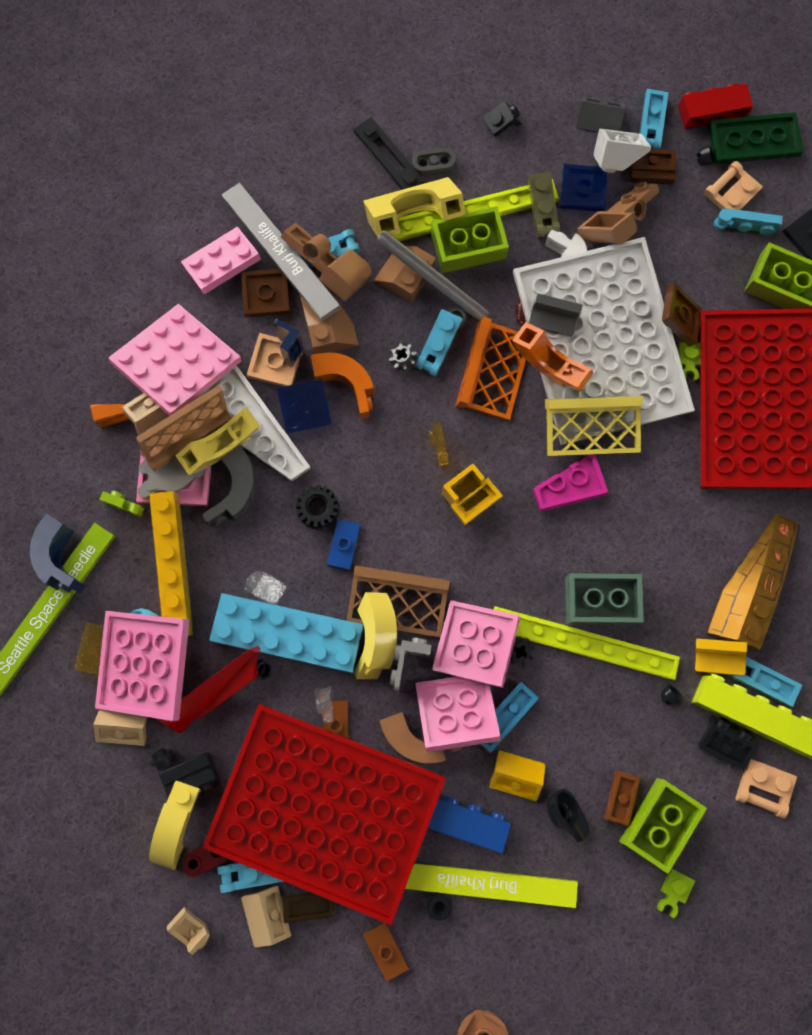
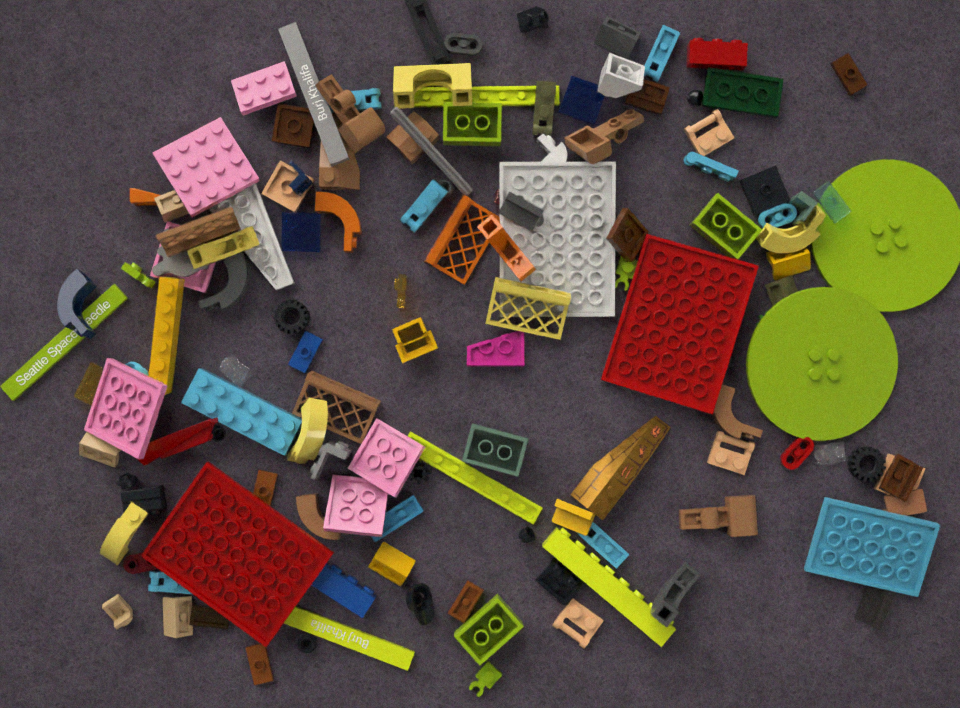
camera: 15 degrees right, 10 degrees up
(324, 703) = (258, 473): clear plate -> none
(403, 358) = (387, 214): flat silver gear -> none

